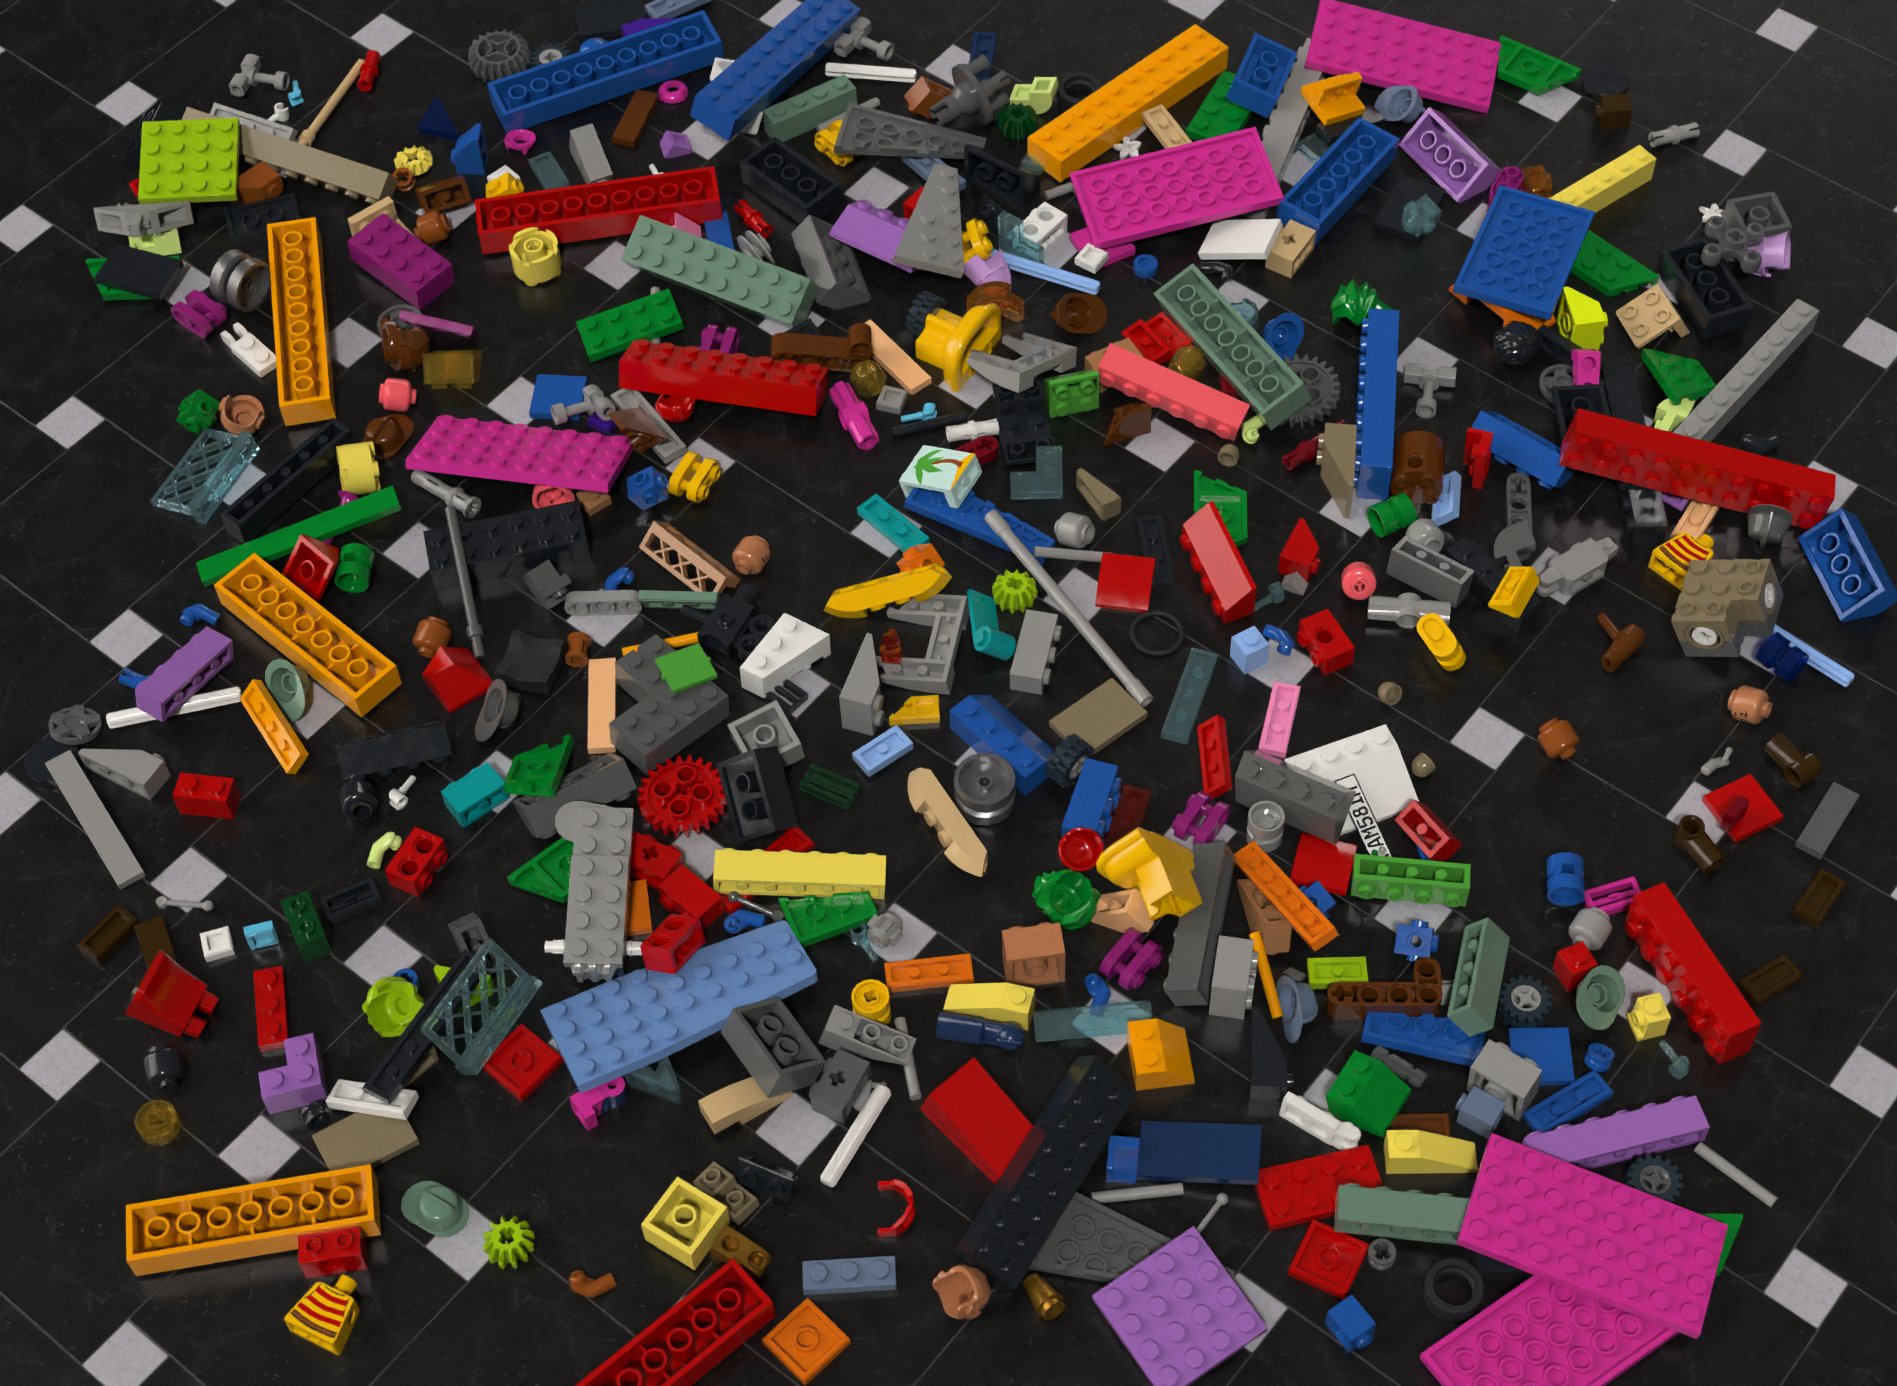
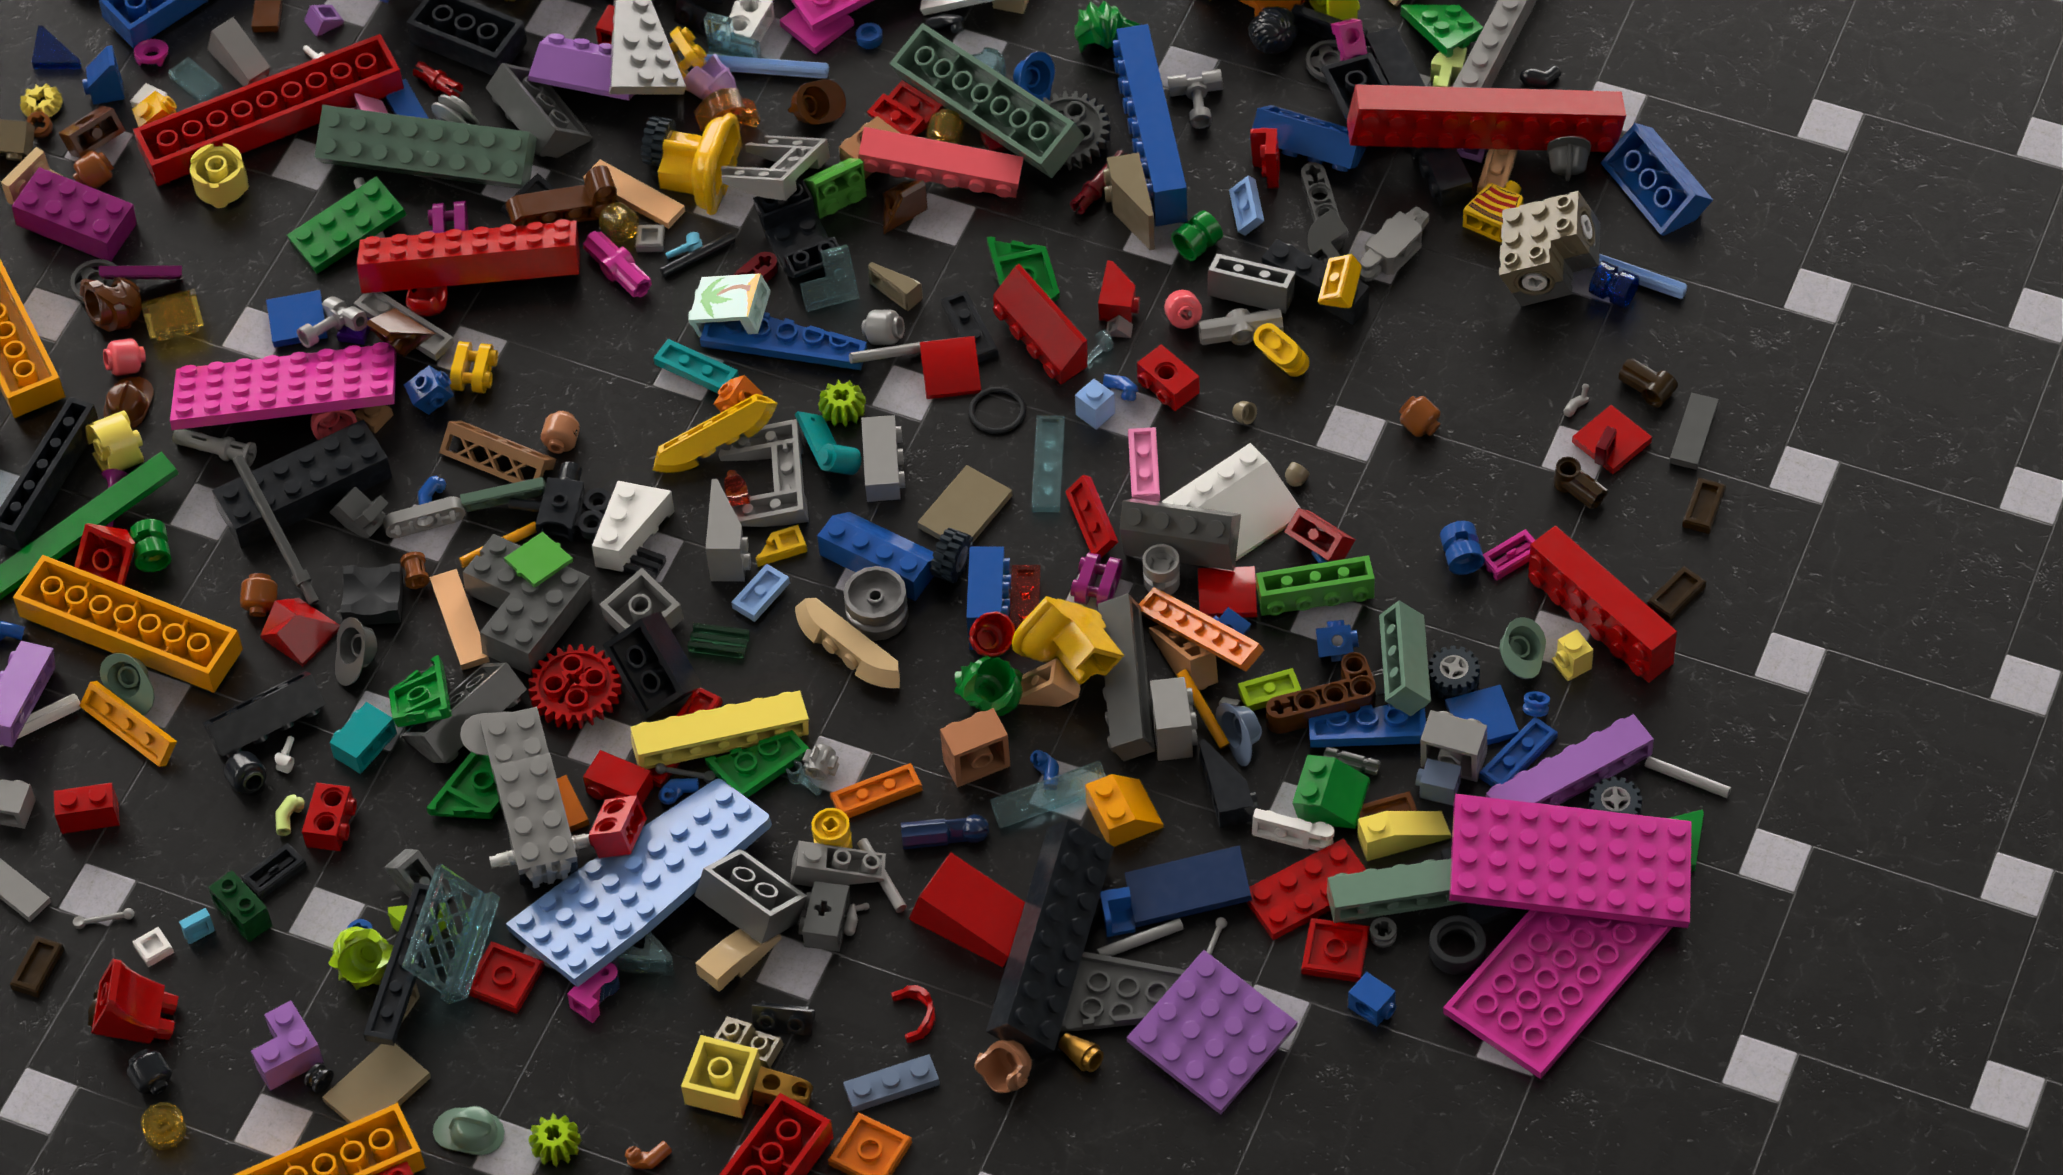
camera: 15 degrees left, 0 degrees up
(152, 938) = (87, 961): dark brown tile -> none
(271, 1008) = (233, 992): red plate -> none
(351, 1097) = (355, 1050): white tile -> none
(652, 859) = (571, 754): red brick -> none
(855, 1135) = (855, 958): white axle -> none
(972, 430) = (745, 250): white pin -> none
(992, 1002) = (947, 800): light yellow slope -> none
(1091, 258) = (811, 41): white tile -> none
(1132, 684) = (988, 466): light grey piece -> none
(1134, 973) = (1076, 740): magenta brick -> none
(1228, 455) = (1015, 213): dark tan hinge -> none
(1250, 429) = (1029, 181): yellowish green arm -> none
(1364, 819) = (1255, 539): sticker -> none
(1418, 466) = (1211, 180): reddish brown cylinder -> none
(1426, 533) = (1237, 246): light grey head -> none
(1573, 965) = (1490, 625): red brick -> none
(1591, 927) = (1497, 588): light grey head -> none
(1624, 642) = (1459, 308): reddish brown piece -> none
(1679, 1064) = (1612, 691): clear light blue hand -> none
(1749, 704) = (1594, 338): nougat head -> none

